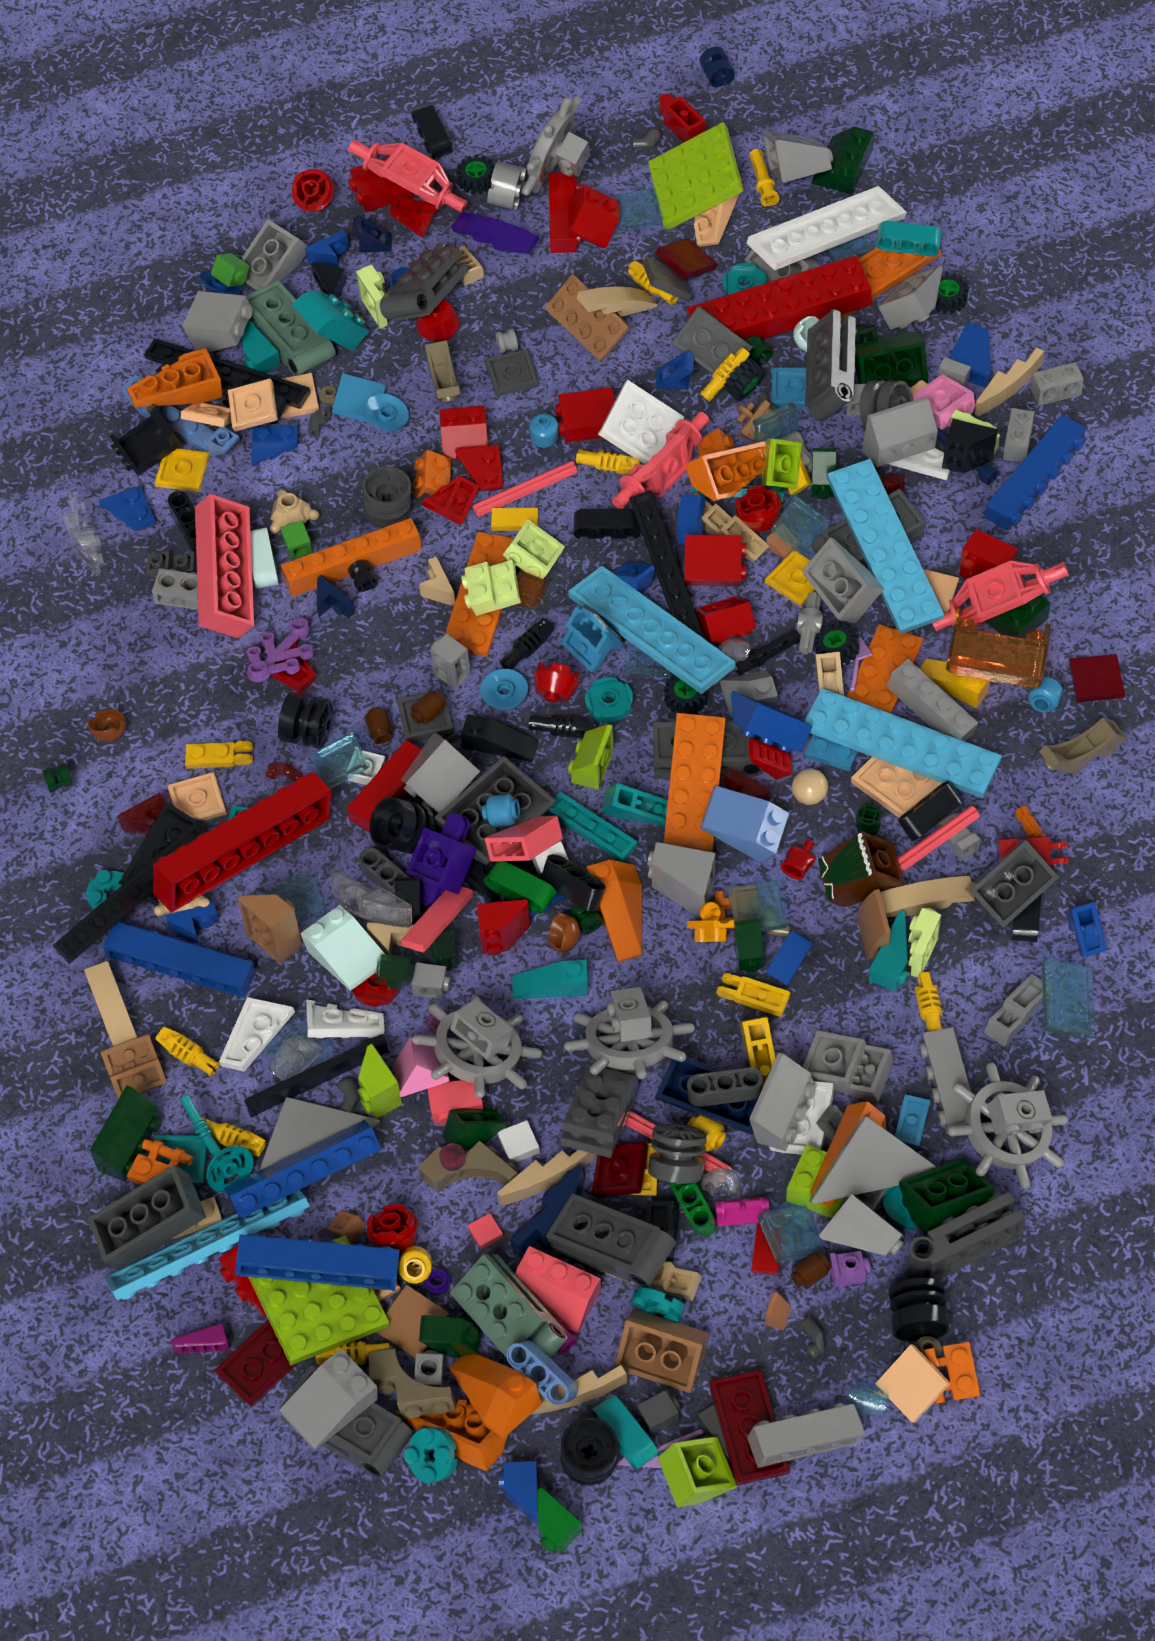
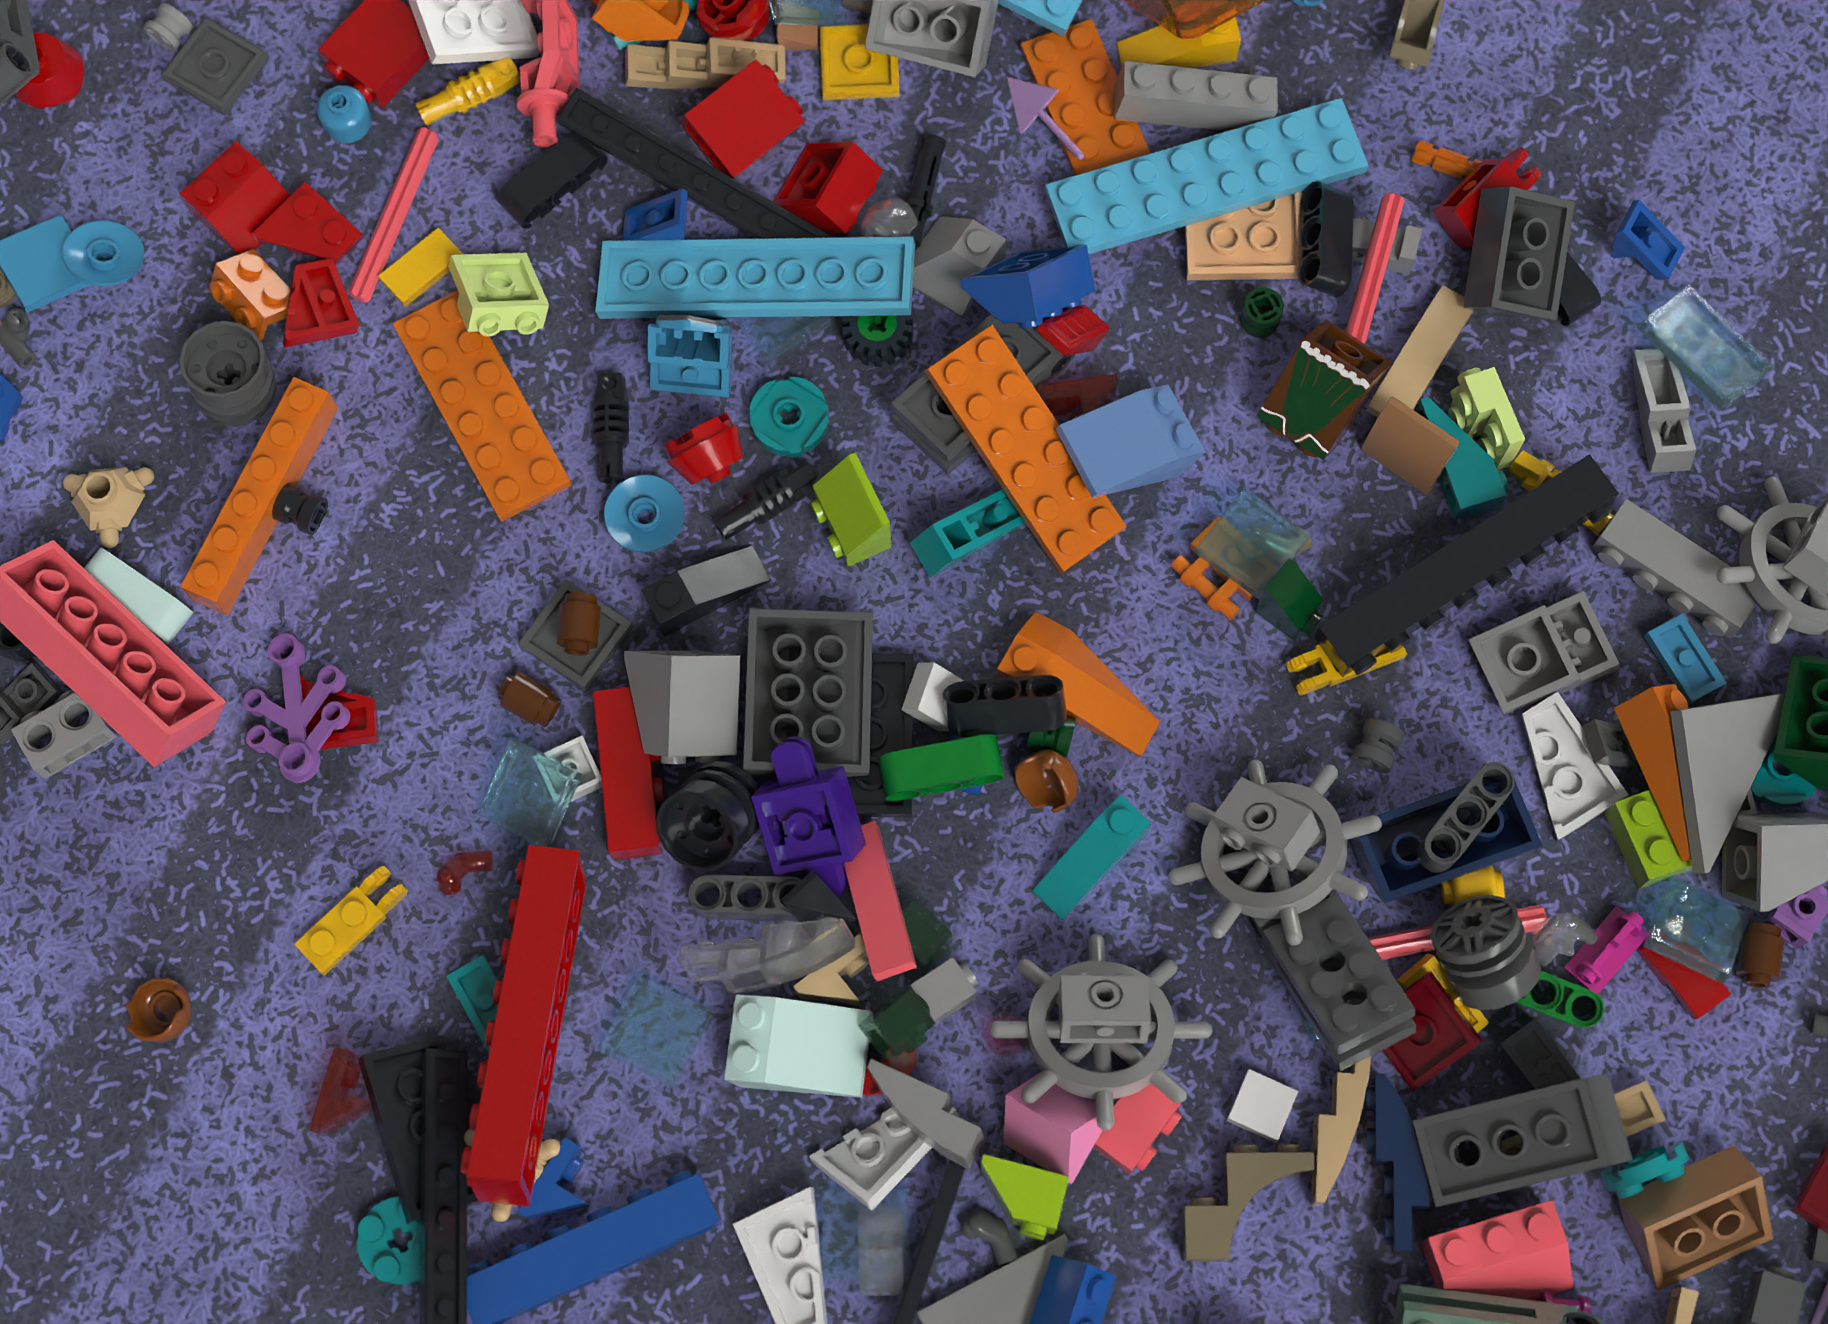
camera: 45 degrees left, 15 degrees up
(62, 775) = (167, 1135): dark green wheel -> none
(198, 797) = (383, 1005): light nougat tile -> none
(271, 924) = (680, 1103): medium nougat slope -> none
(296, 540) = (158, 531): bright green brick -> none
(305, 720) = (432, 777): black wheel -> none
(330, 596) = (282, 573): dark blue slope -> none
(368, 1014) = (928, 1114): none -> light grey slope
(437, 586) = (420, 440): tan slope -> none
(441, 371) = (136, 145): dark tan arch -> none
(450, 661) = (541, 534): light grey brick -> none
(452, 1157) = (1219, 1207): clear pink tile -> none
(472, 1126) = (1197, 1142): dark green slope -> none
(485, 1231) = (1335, 1259): coral tile -> none
(491, 587) = (496, 387): yellowish green plate -> none
(501, 810) = (827, 688): dark azure head -> none
(502, 924) = (965, 842): red slope -> none
(524, 839) = (894, 702): coral slope -> none
(531, 589) = (538, 353): clear orange brick -> none
(592, 828) = (941, 606): teal plate -> none
(682, 875) = (1127, 577): light grey slope -> none
(690, 516) = (657, 87): blue slope -> none
(711, 928) = (1215, 608): light orange hips -> none
(727, 1040) = (1378, 745): none -> dark grey wheel
(758, 1045) = (1432, 727): yellow slope -> none
(777, 1311) = (1771, 1044): nougat slope -> none
(782, 1103) = (1540, 772): light grey slope -> none
(789, 958) = (1344, 568): blue slope -> none
(798, 860) = (1231, 435): red piece -> none
(809, 623) = (938, 109): light grey axle -> none
(809, 786) = (1146, 327): tan hair -> none
(829, 672) = (1033, 158): tan slope -> none
(830, 753) = (1128, 262): dark azure plate -> none
(838, 640) = (1008, 123): black wheel -> none
(844, 993) = (1466, 566): none -> black brick

